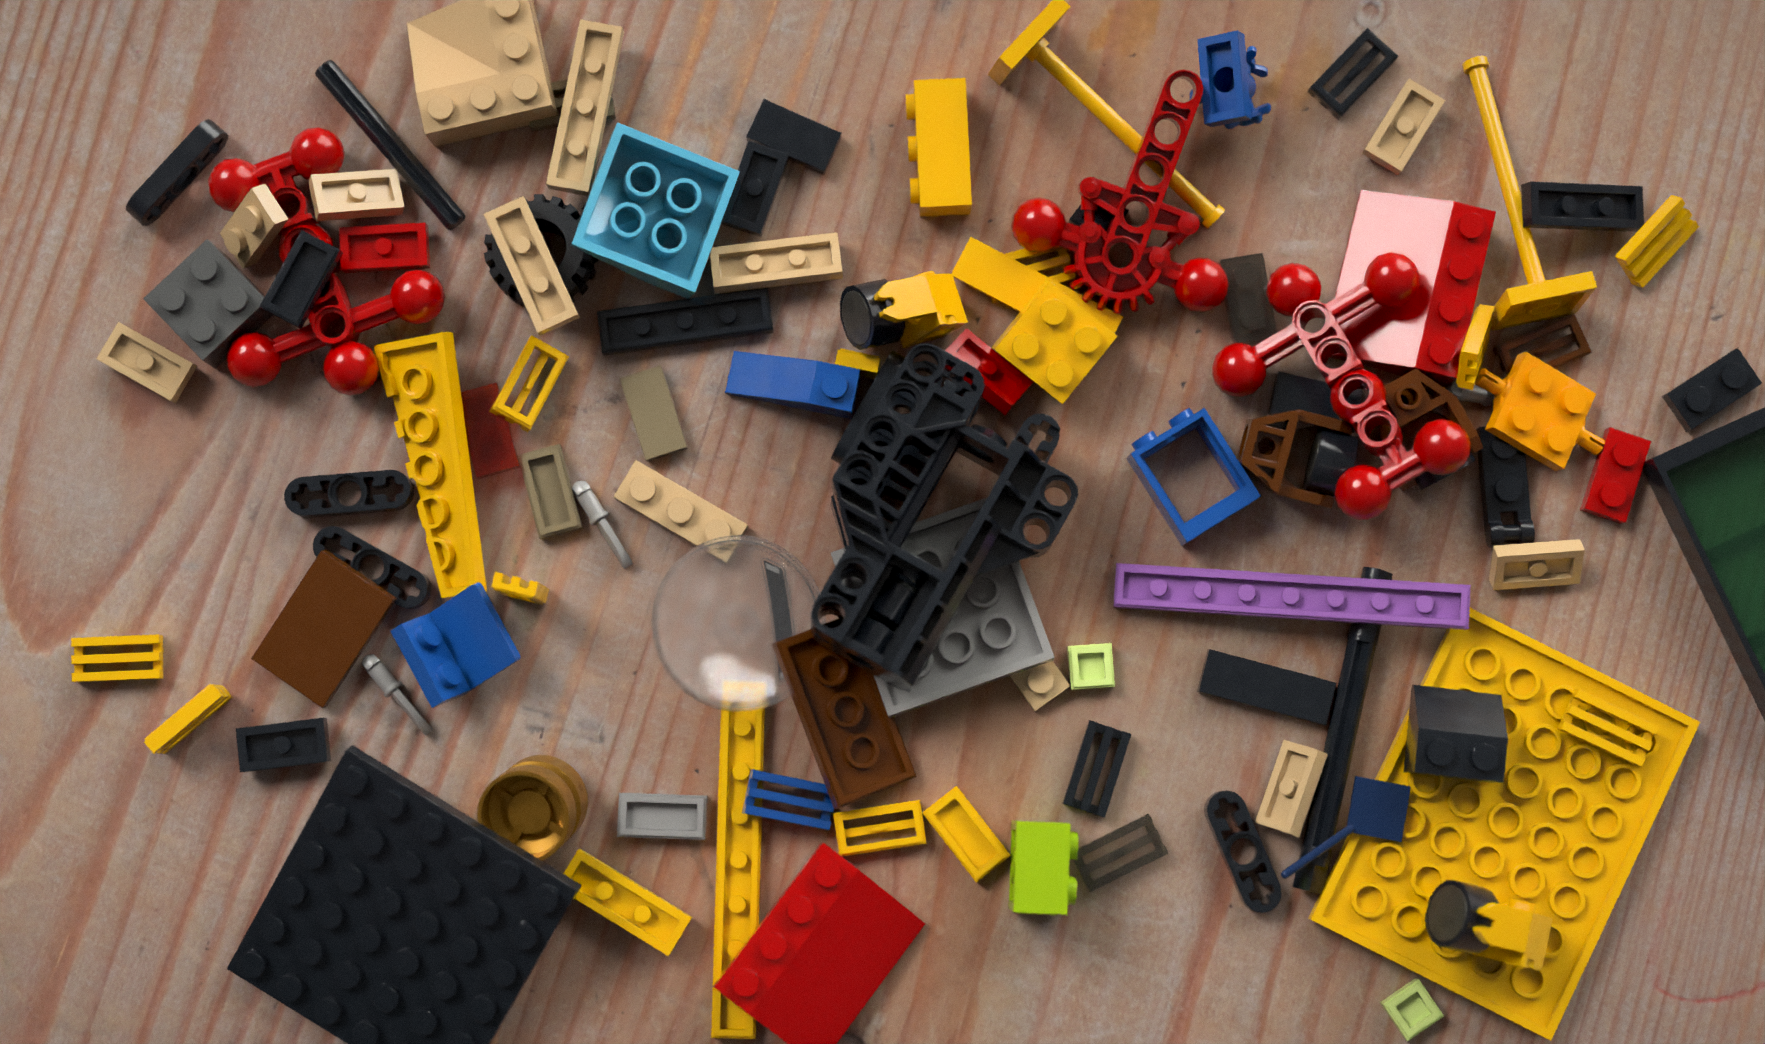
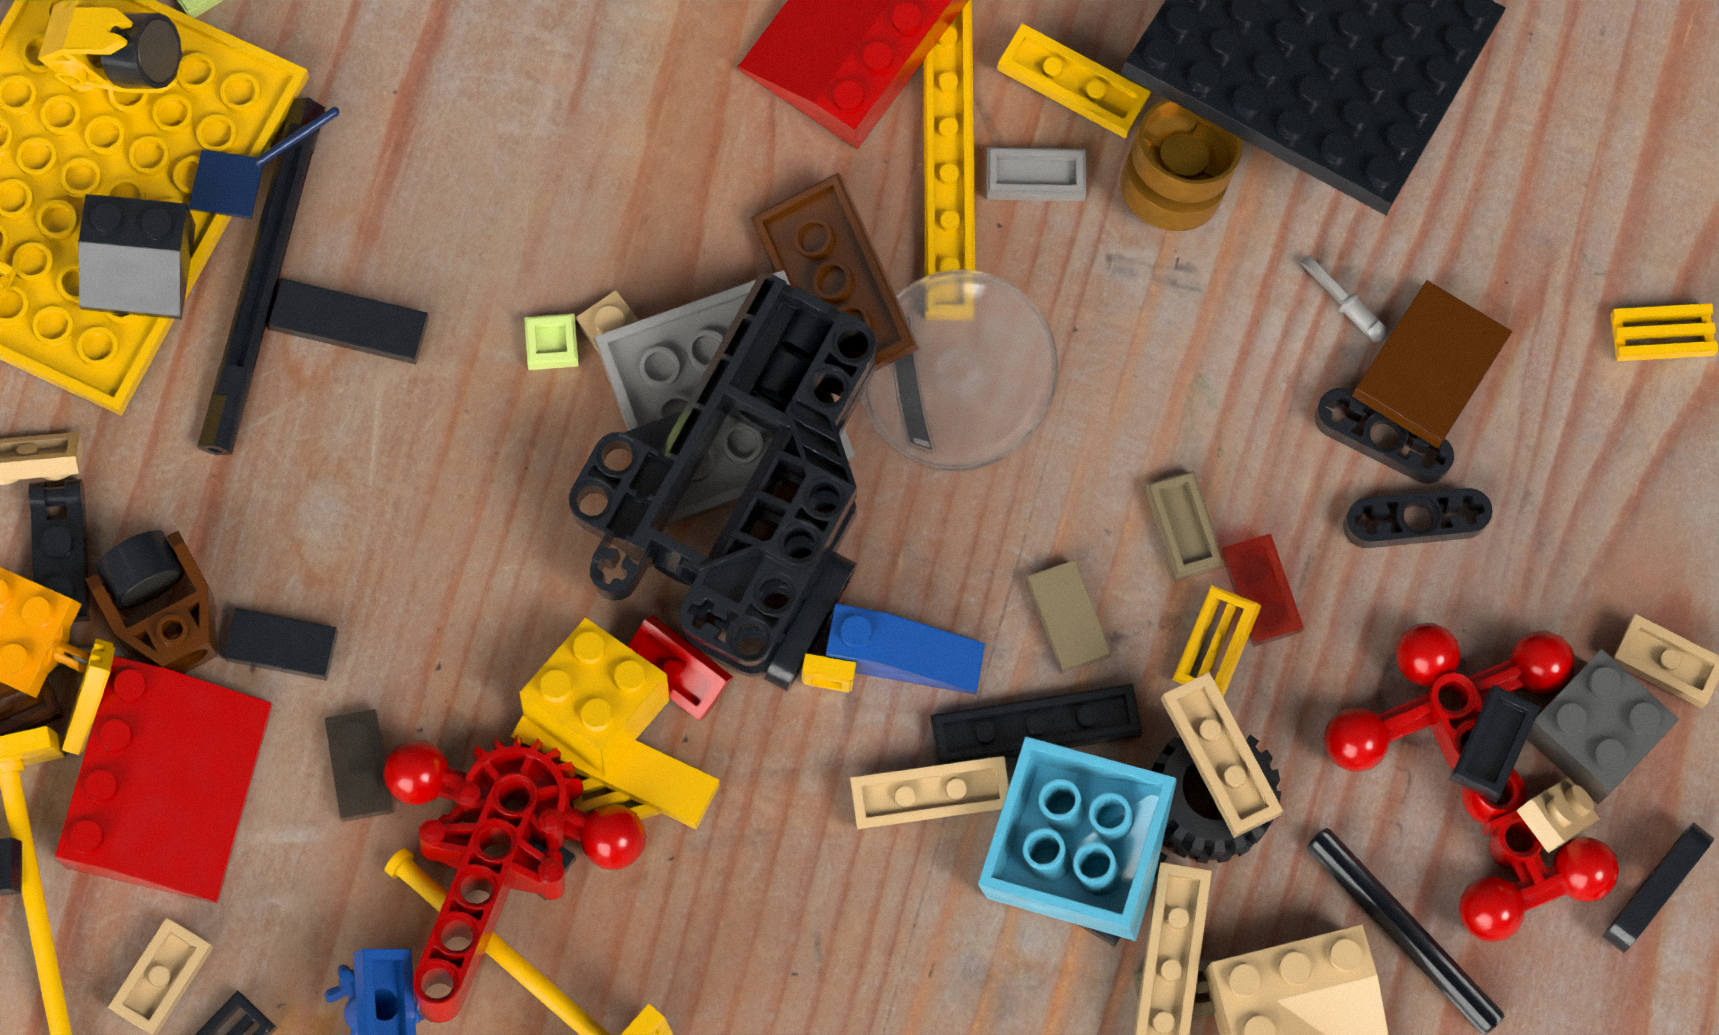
camera: 175 degrees right, 10 degrees down
(187, 718) = (1576, 263): yellow tile -> none
(283, 744) = (1466, 239): black plate -> none
(356, 194) = (1439, 860): tan plate -> none
(384, 247) = (1400, 802): red plate -> none
(429, 407) = (1328, 599): yellow wing -> none
(456, 646) = (1282, 340): blue bracket -> none
(519, 588) = (1209, 409): yellow tile -> none
(598, 517) = (1126, 497): light grey piece -> none
(675, 506) = (1033, 508): tan plate -> none
(755, 188) = (955, 888): black plate -> none
(794, 134) = (913, 952): black tile -> none
(826, 806) = (896, 170): blue tile -> none
(842, 833) = (786, 147): yellow tile -> none
(902, 309) = (790, 724): yellow piece -> none
(940, 147) = (734, 936): yellow brick -> none
(966, 834) = (693, 160): yellow tile -> none
(1041, 867) = (608, 112): lime brick -> none
(1108, 734) = (557, 193): black tile -> none
(1151, 836) = (513, 126): clear smoke tile -> none
(1182, 424) = (405, 507): blue window -> none
(1266, 877) = (355, 120): black beam -> none
(1291, 788) = (324, 208): tan plate -> none
(1292, 596) = (317, 414): medium lavender tile -> none
(1295, 292) = (190, 763): red piece -> none
(1328, 458) = (339, 585): reddish brown piece -> none

